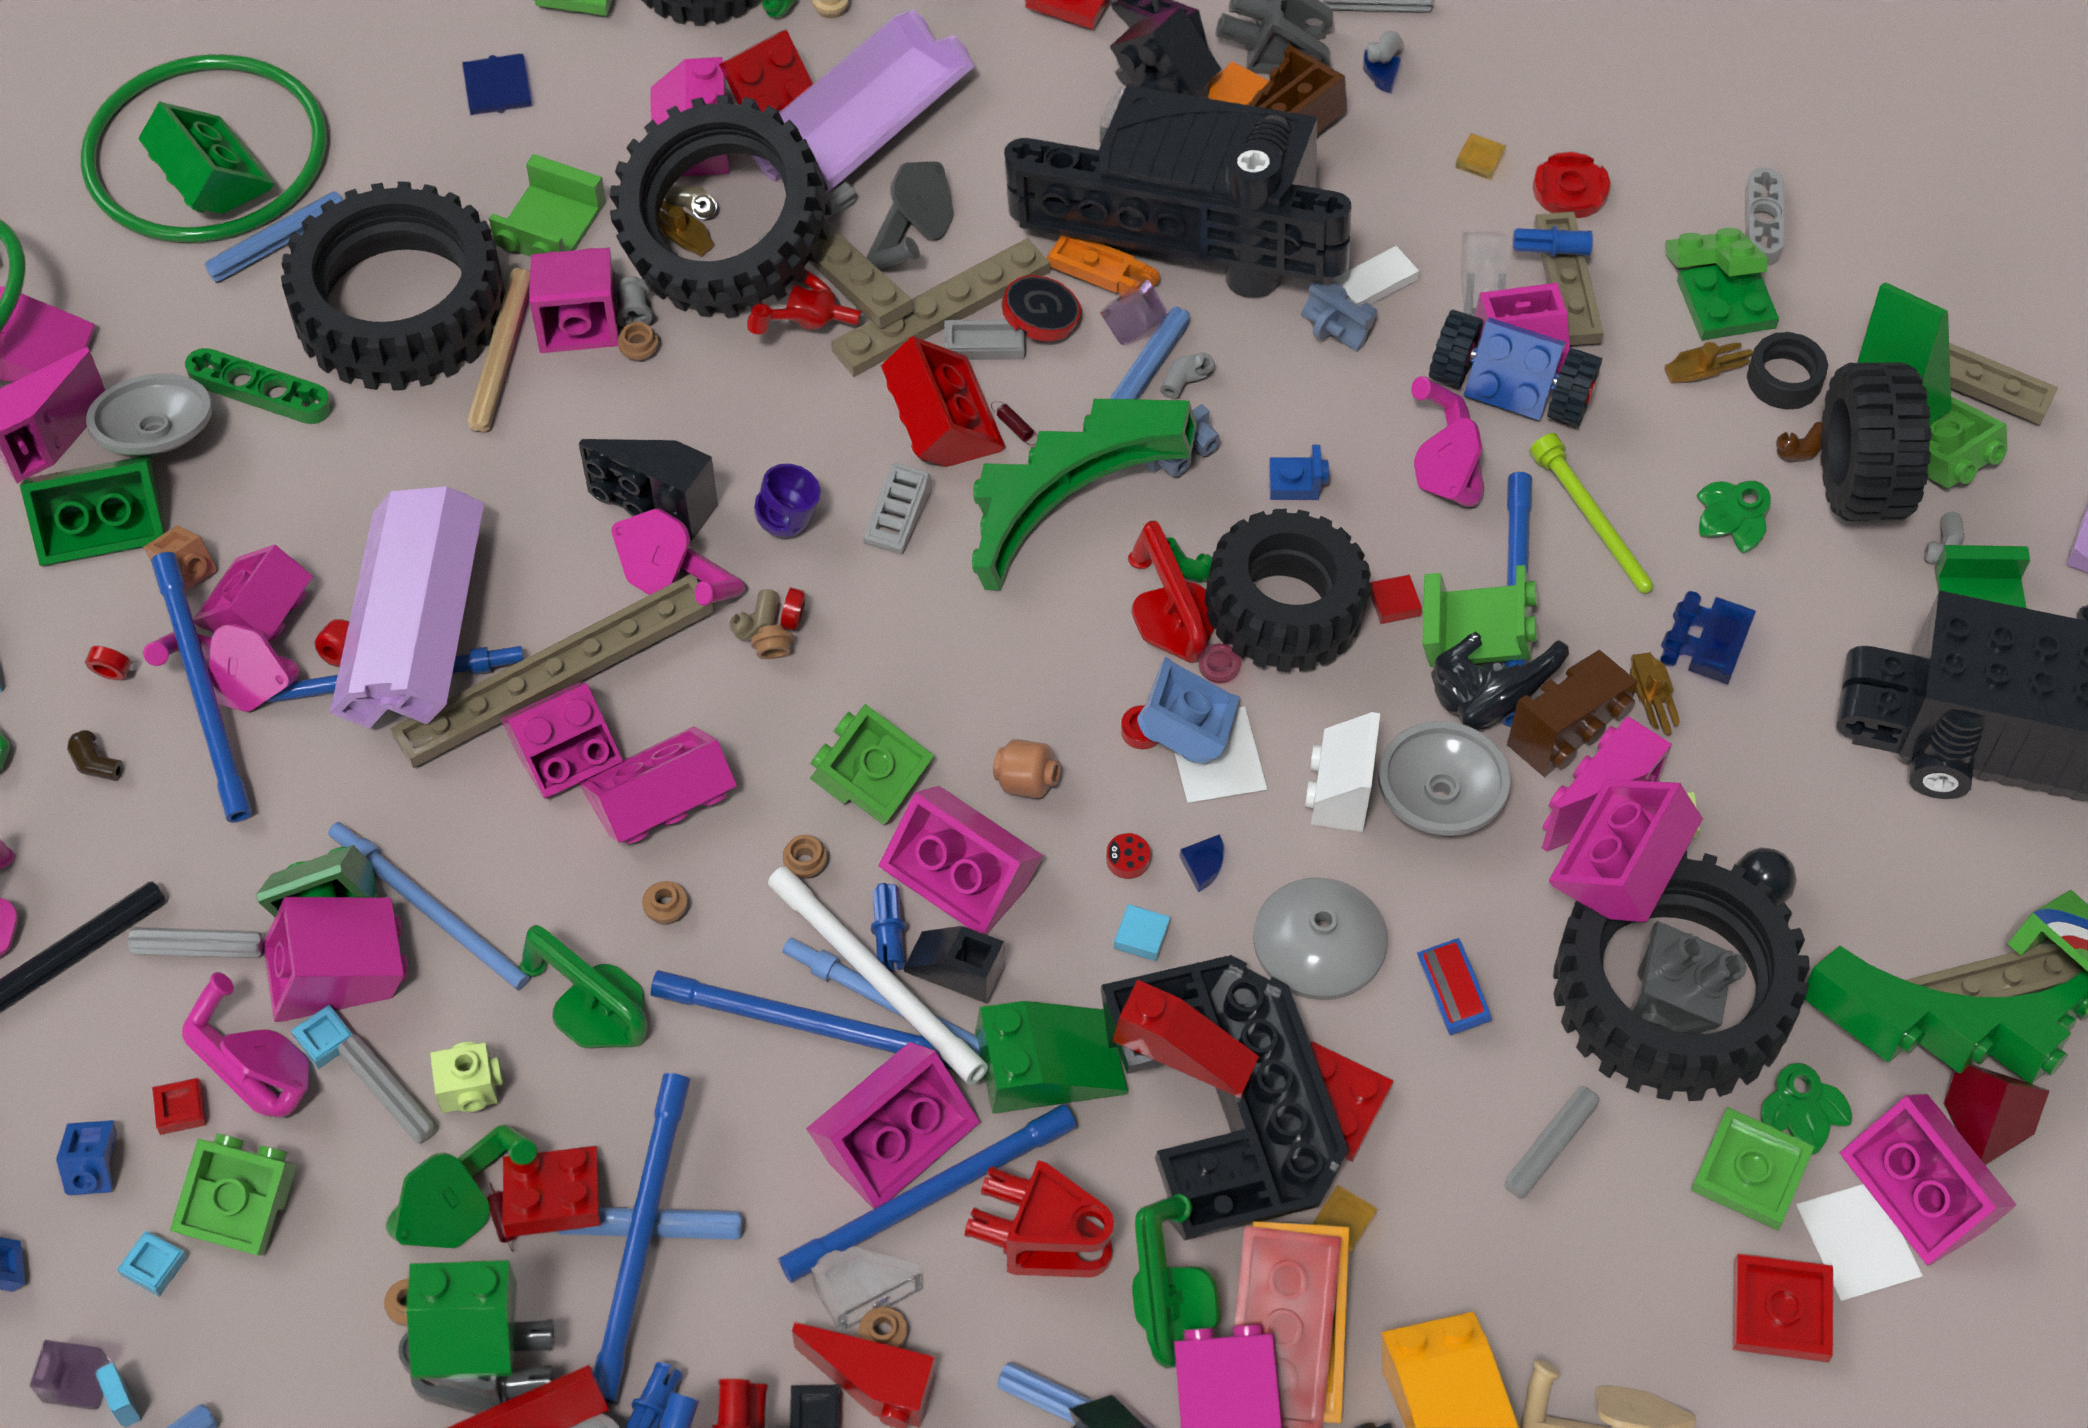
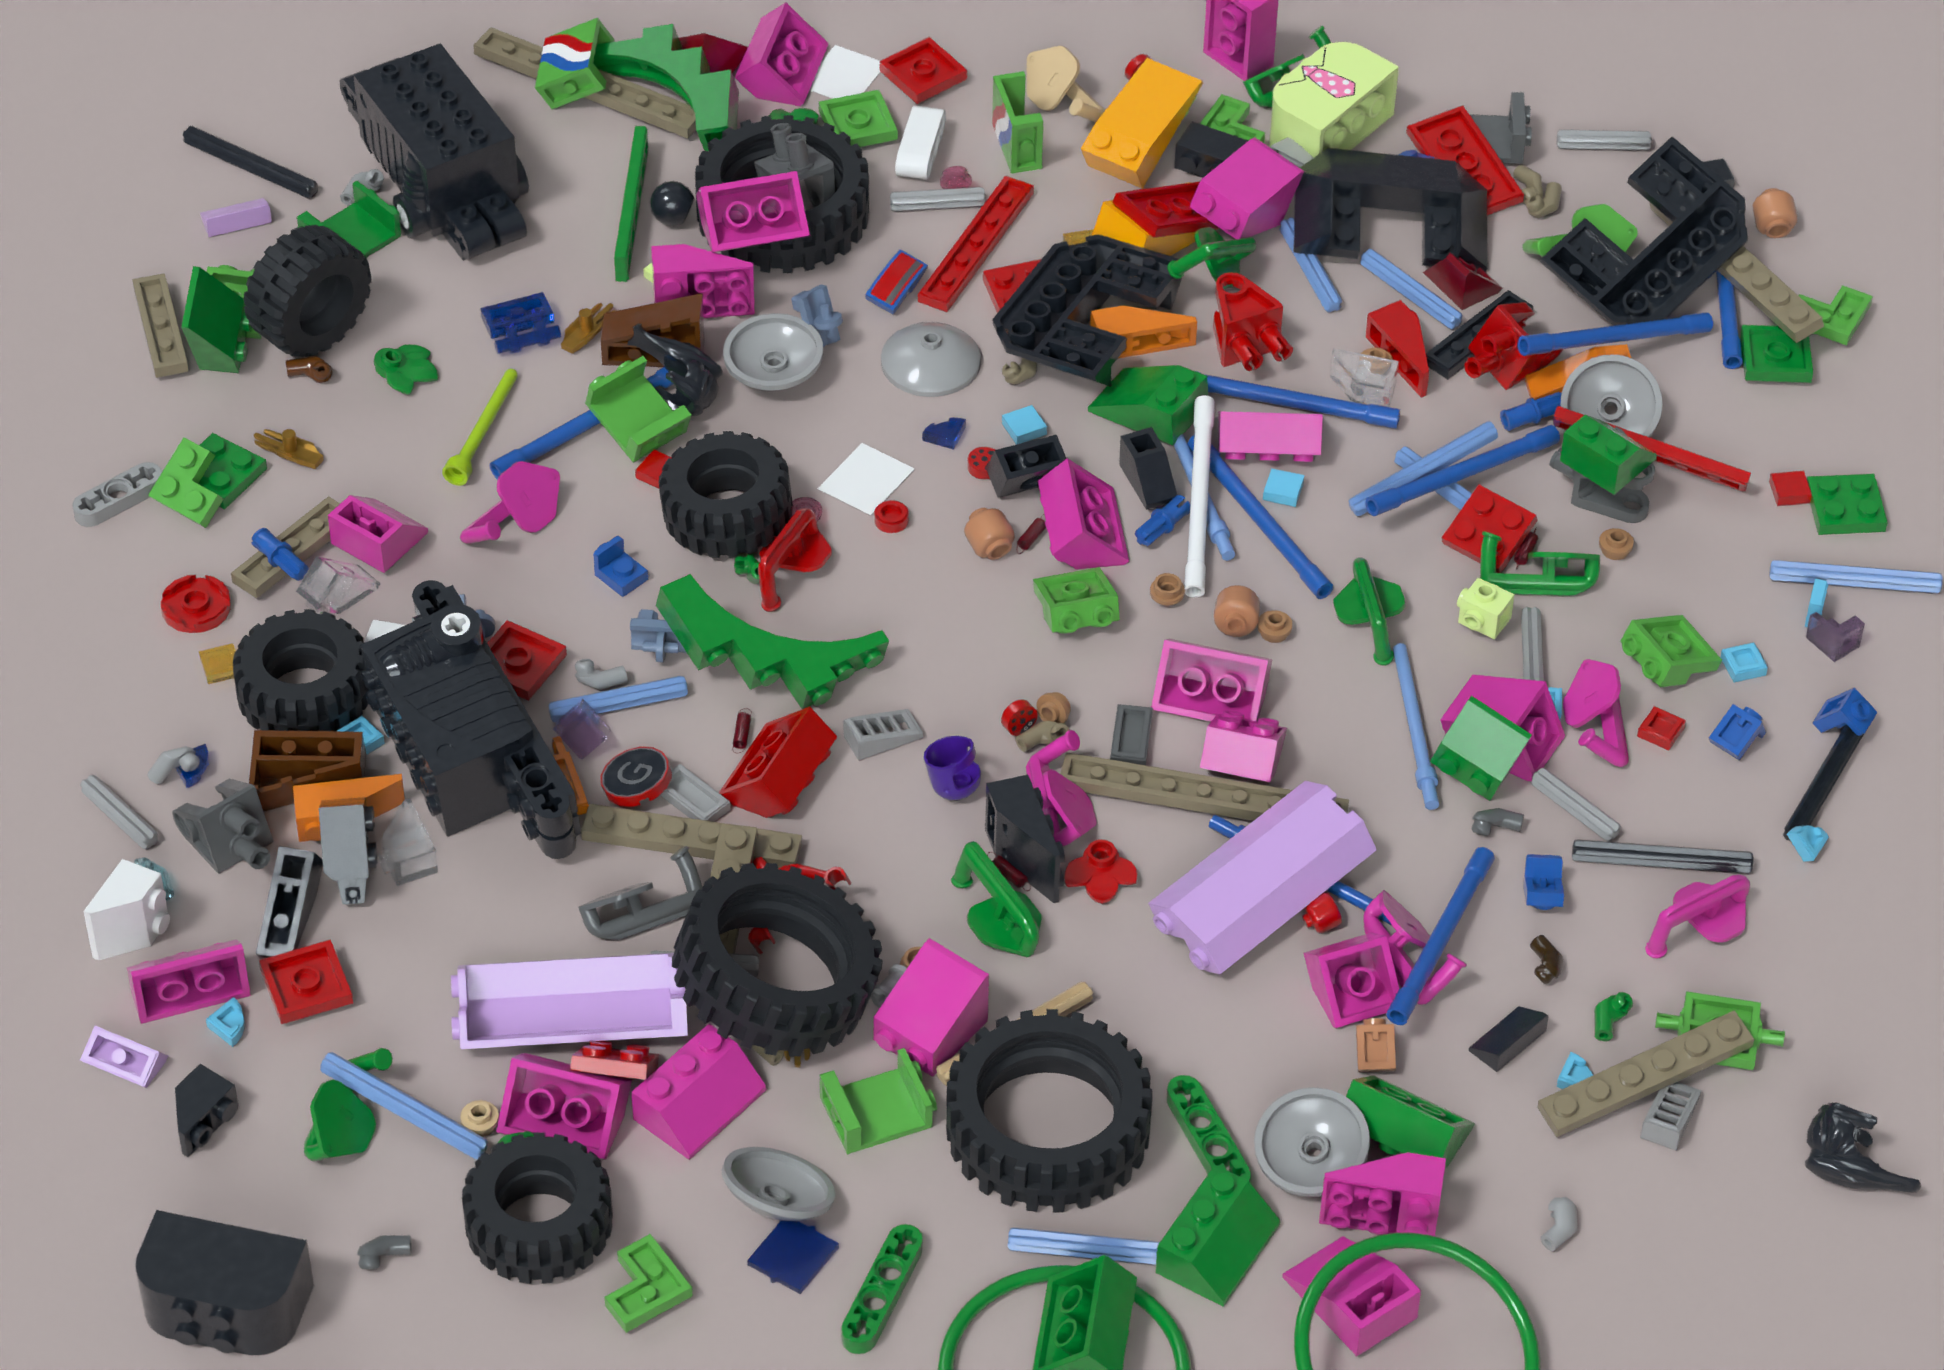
camera: 135 degrees left, 10 degrees down
(63, 665) = (1510, 1037): none -> black slope
(108, 663) = (1487, 1006): red tile -> none
(150, 818) = (1543, 881): none -> blue bracket
(170, 305) = (1216, 1237): none -> green slope
(263, 863) = (1498, 817): none -> dark grey arm
(401, 102) = (881, 1288): none -> green beam
(539, 63) = (777, 1184): none -> light grey dish
(570, 532) = (1100, 871): none -> red plate
(619, 418) = (1008, 917): none -> green piece
(682, 683) = (1131, 734): none -> dark grey tile
(682, 1203) = (1430, 463): none -> medium blue axle
(709, 877) = (1236, 608): none -> nougat head
(812, 30) = (564, 1102): none -> dark pink slope
(817, 1078) = (1283, 487): none -> medium azure tile
(996, 810) = (1031, 534): none -> dark red piece
(1068, 858) = (1022, 465): none -> black brick
(1170, 1117) = (1146, 329): none -> orange slope
(1183, 1039) = (1091, 321): red slope -> none
(1188, 713) = (865, 482): medium blue slope -> none
(1263, 329) = (525, 657): none -> red plate
(1344, 773) = (820, 391): white slope -> none
(1400, 133) = (294, 644): none -> black tyre
(1450, 1126) = (975, 244): none -> red tile
(1456, 850) = (818, 311): none -> sand blue hips
(1514, 368) = (432, 536): plate -> none
(1559, 1174) = (955, 178): none -> clear pink plate
(1590, 1278) = (1017, 133): none -> bright green panel
(1656, 1196) = (920, 142): none -> white beam
(1794, 348) = (252, 387): black tyre -> none
(1806, 852) = (631, 204): none -> green tile

